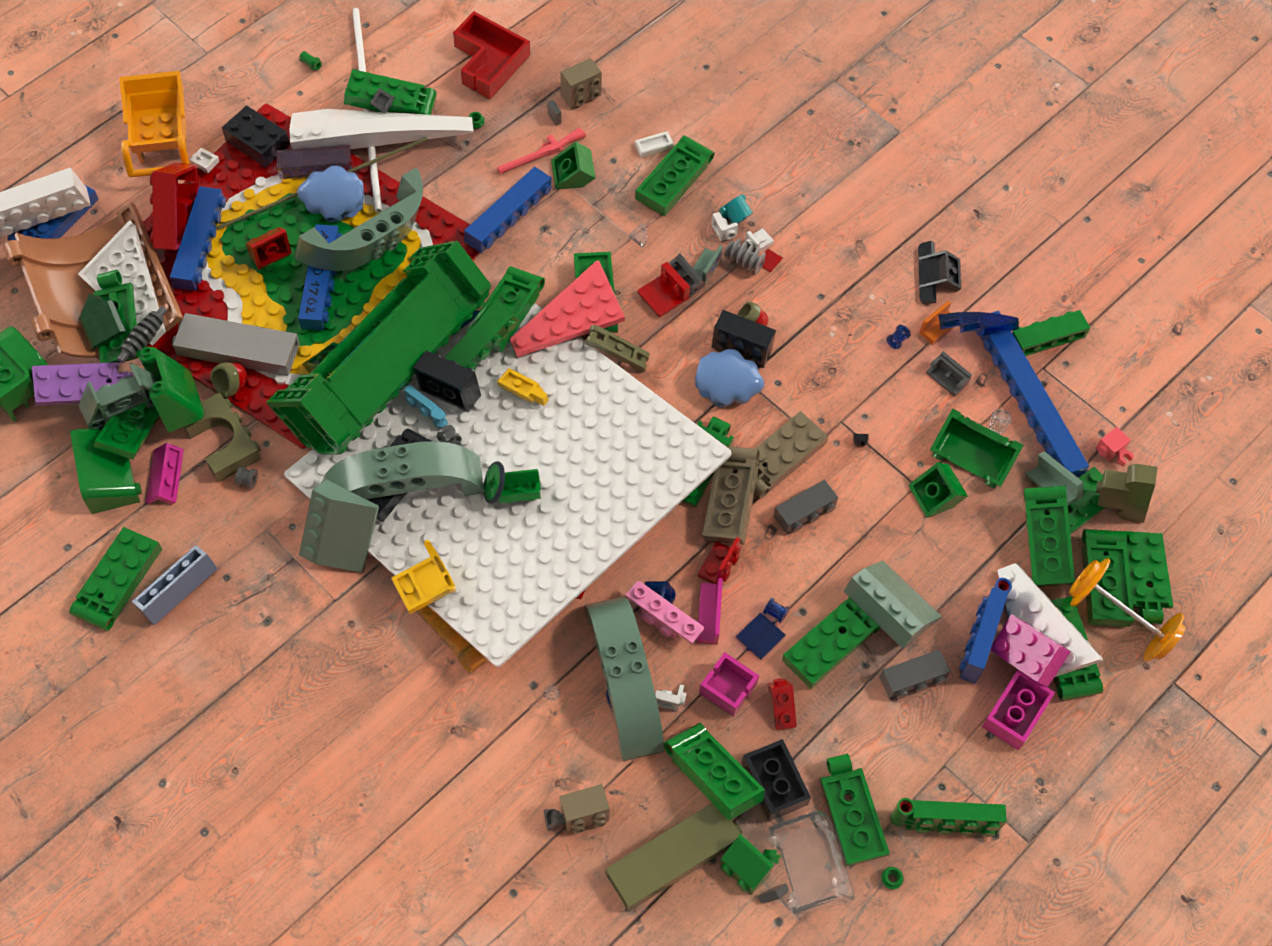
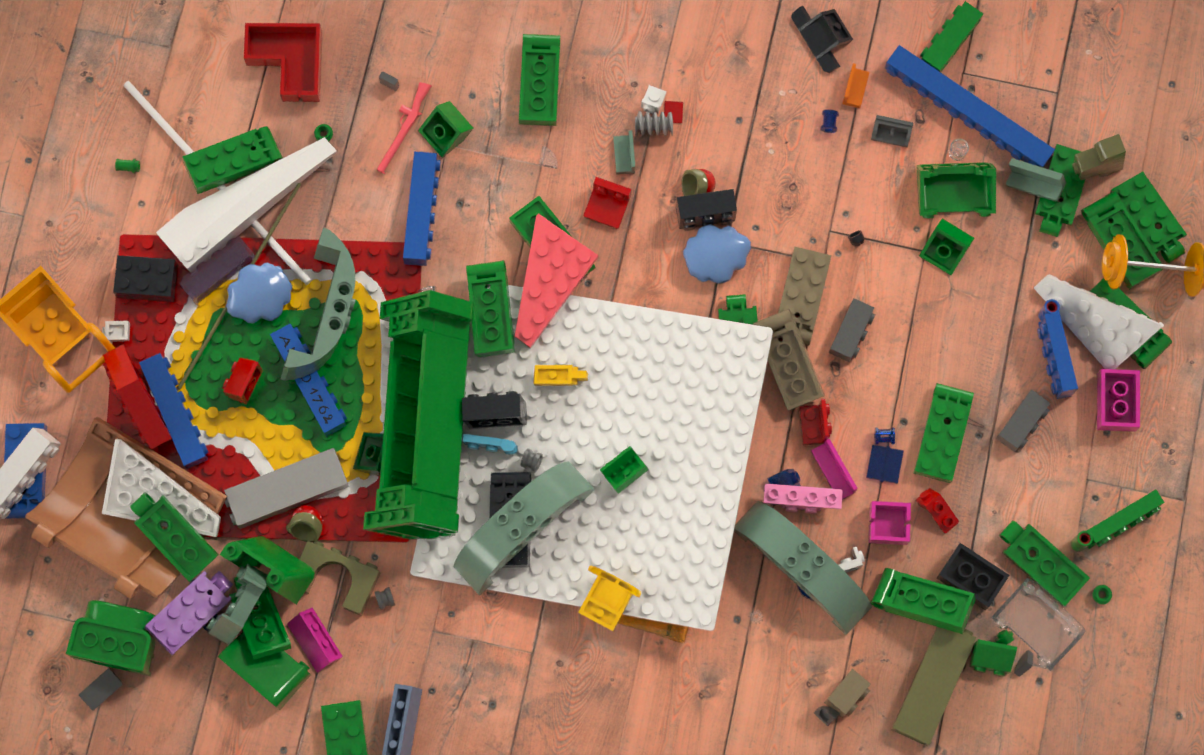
camera: 30 degrees left, 15 degrees up
(100, 321) = (162, 545): dark green tile -> none
(142, 334) = (211, 536): dark grey piece -> none
(338, 528) = (503, 597): sand green slope -> none
(382, 100) = (236, 173): dark grey tile -> none
(483, 336) = (497, 354): green brick -> none
(494, 482) = (602, 479): wheel -> none
(581, 83) = (395, 38): dark tan brick -> none
(617, 348) = (608, 285): olive plate -> none
(654, 144) = (497, 56): white tile -> none
(686, 271) = (617, 174): dark grey hinge -> none
(722, 228) = (612, 106): white bracket -> none
(736, 209) = (617, 83): teal piece -> none
(891, 603) = (971, 372): sand green slope -> none
(985, 322) = (897, 67): clear blue slope -> none
(1029, 650) = (1101, 348): brick -> none
(1049, 536) = (1060, 236): green hinge -> none
(1115, 445) = (1062, 114): coral brick -> none

